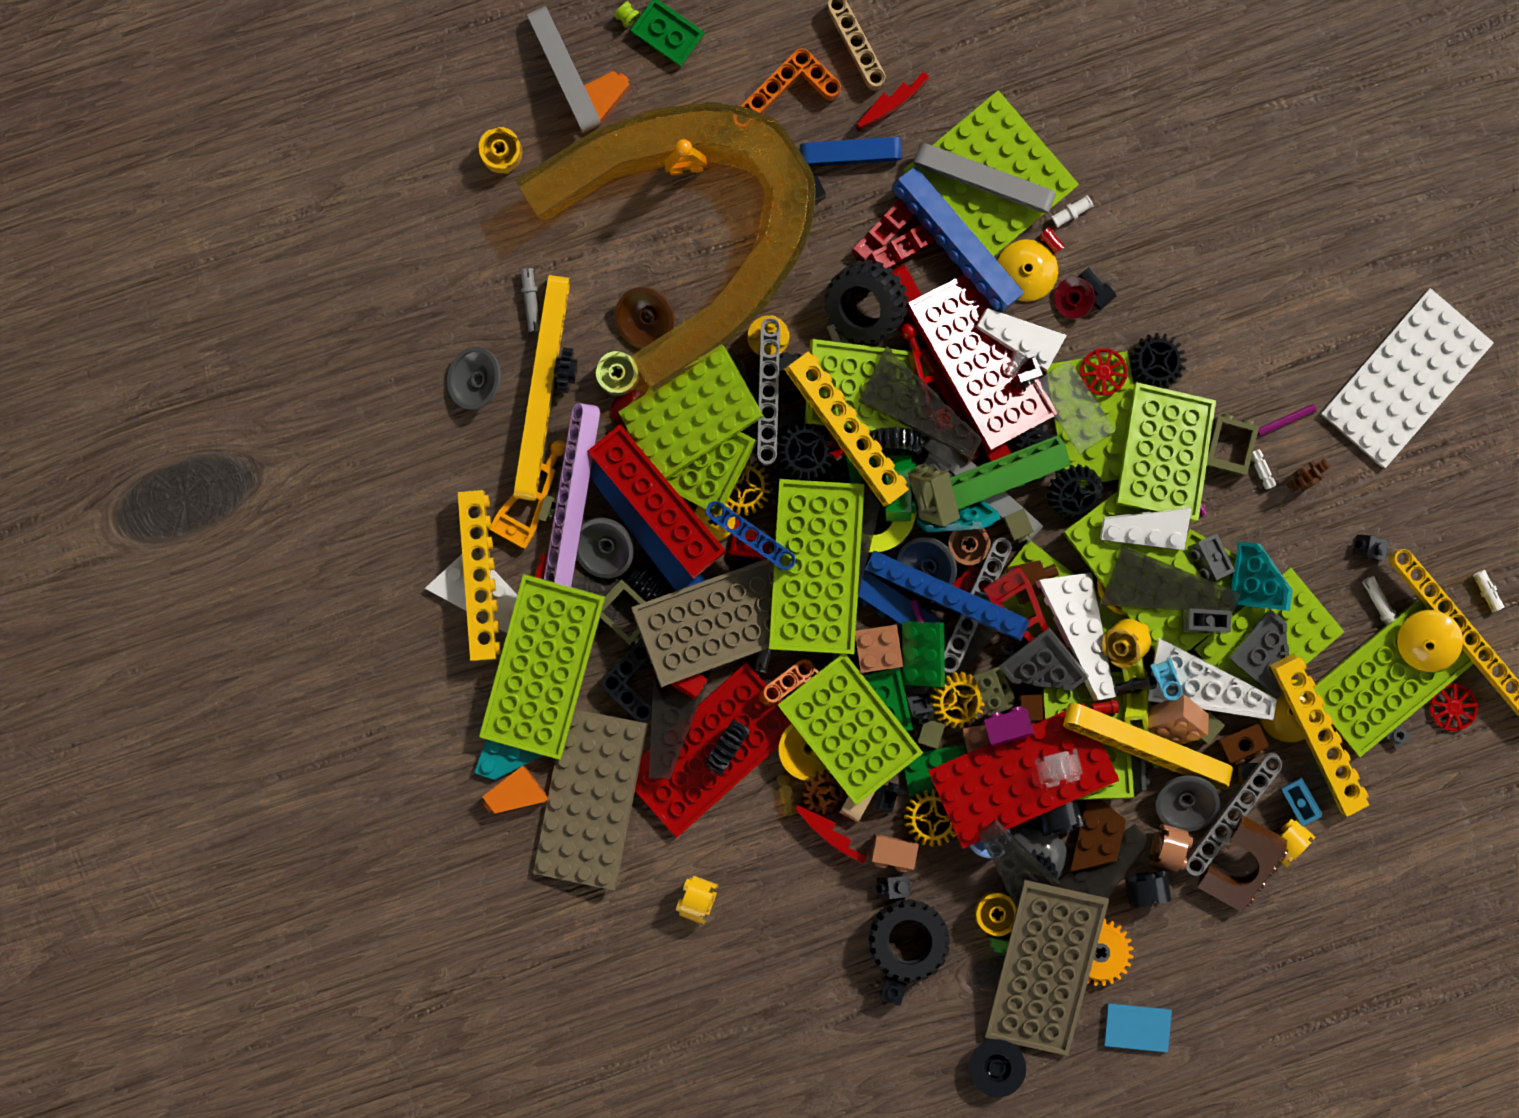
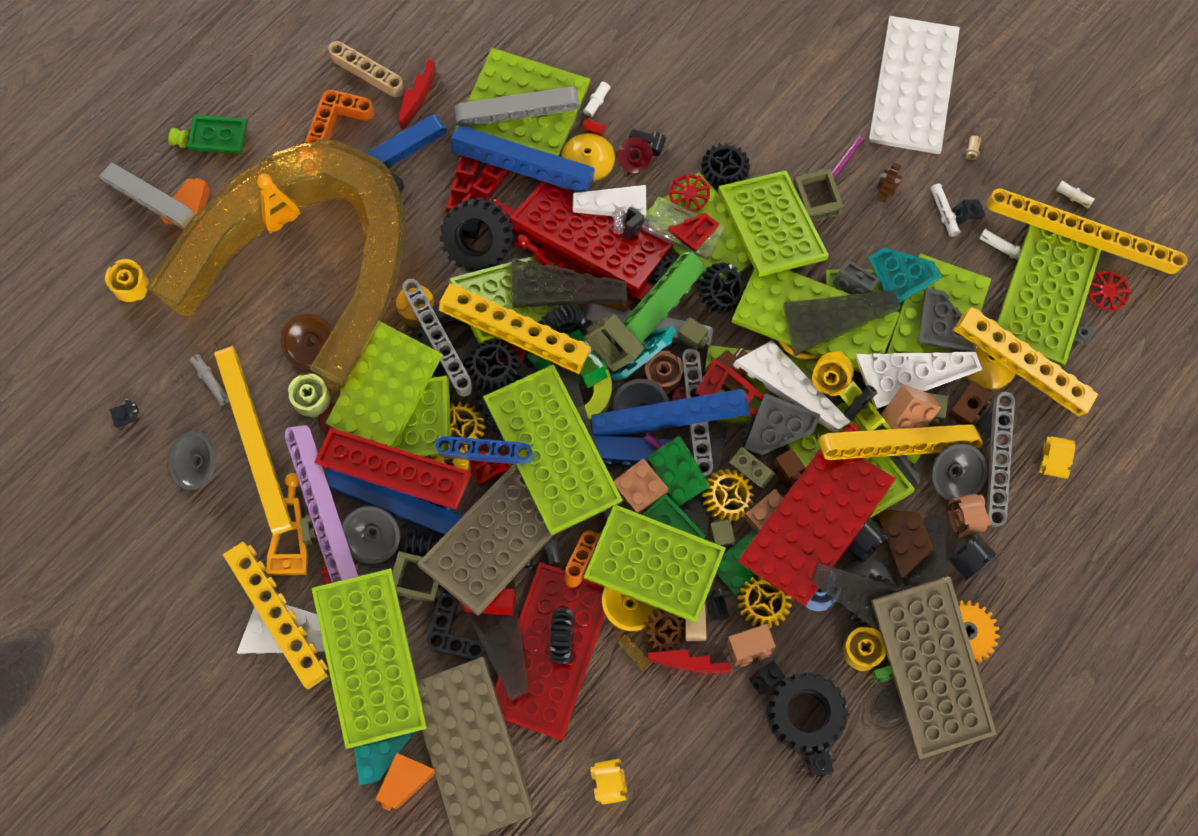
camera: 30 degrees left, 15 degrees down
(432, 289) = (124, 413): none -> black bracket
(565, 370) = (265, 413): black gear -> none
(920, 709) = (703, 517): black bracket -> none
(997, 1068) = (946, 779): black hat -> none
(1009, 726) = (782, 484): magenta brick -> none
(1059, 767) = (842, 491): clear brick -> none
(1082, 419) = (694, 231): none -> red wing
(1137, 1027) = (1036, 678): dark azure tile -> none
(1153, 529) = (800, 277): white wing -> none
(1166, 675) = (881, 378): medium azure piece -> none
(1206, 621) = (884, 321): dark grey brick -> none
(1240, 889) = (1045, 516): reddish brown arch -> none
(1263, 469) = (853, 201): white axle -> none
(1302, 801) = (1045, 421): dark azure brick -> none
(1348, 532) = (948, 216): none -> white pin
(1415, 488) = (973, 148): none -> tan pin
(1430, 627) = (1046, 246): yellow dish -> none

